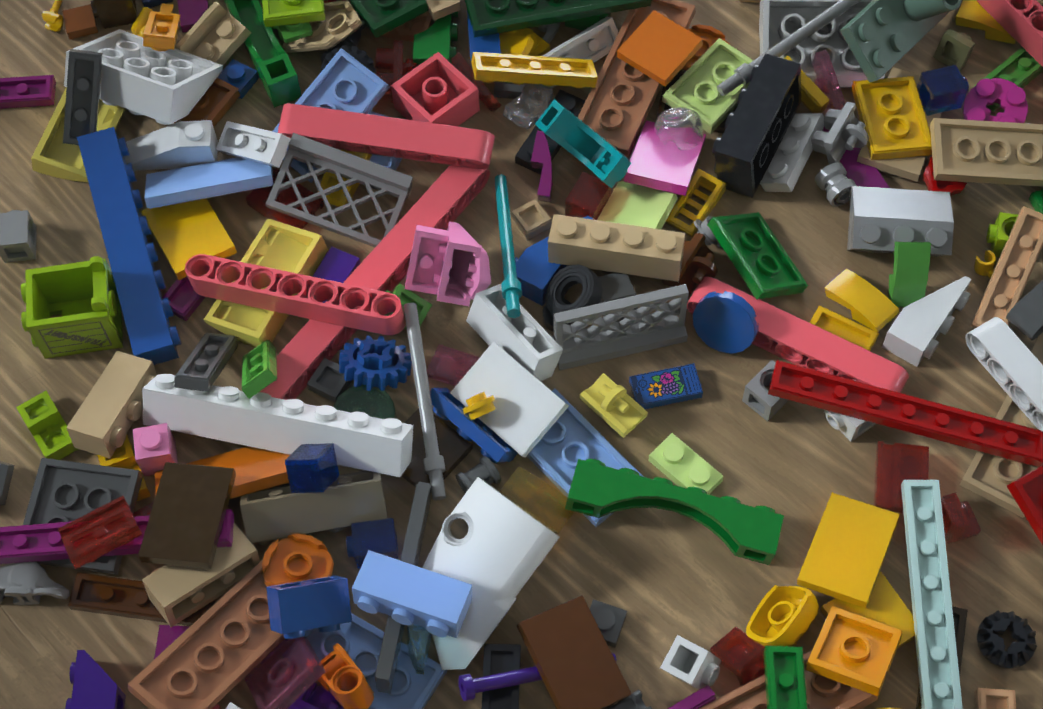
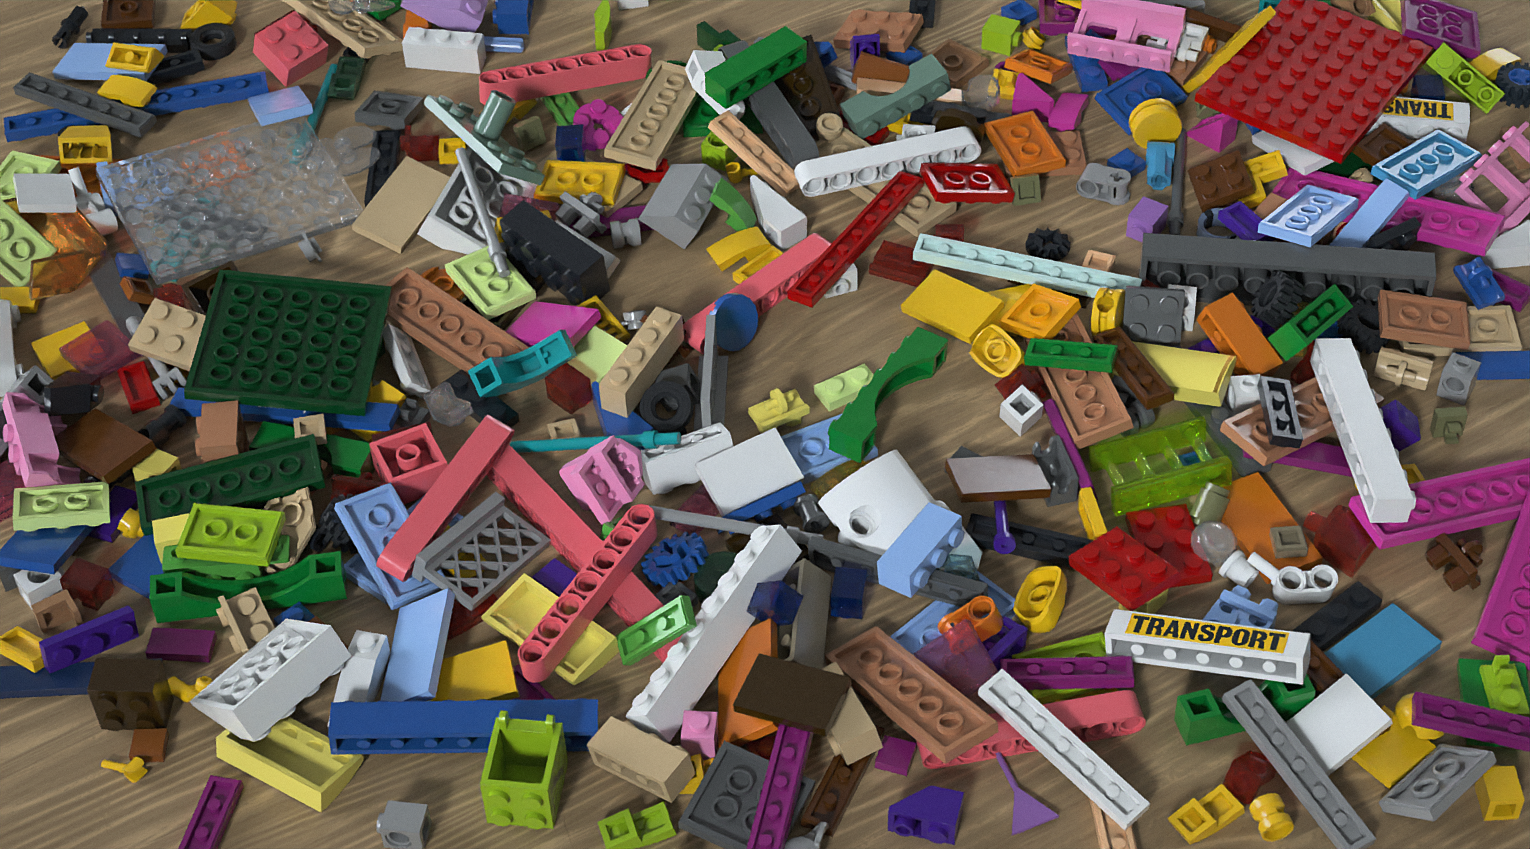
camera: 75 degrees left, 15 degrees down
(82, 94) = (287, 717): dark grey tile -> none
(99, 532) = (787, 761): clear red plate -> none
(162, 29) = (214, 658): light orange hinge -> none
(206, 362) = (628, 674): dark grey tile -> none
(253, 144) = (401, 600): white plate -> none
(295, 560) = (857, 644): orange tile -> none
(309, 605) = (903, 627): blue brick -> none
(479, 405) = (752, 487): yellow plate -> none
(533, 70) = (422, 384): yellow plate -> none
(542, 160) = (518, 400): magenta slope -> none
(659, 48) = (441, 298): orange tile -> none
(666, 386) = (767, 376): tile -> none
(680, 126) = (526, 308): clear hair -> none
(757, 255) = (673, 292): green tile -> none
(757, 395) = (799, 320): light grey brick -> none

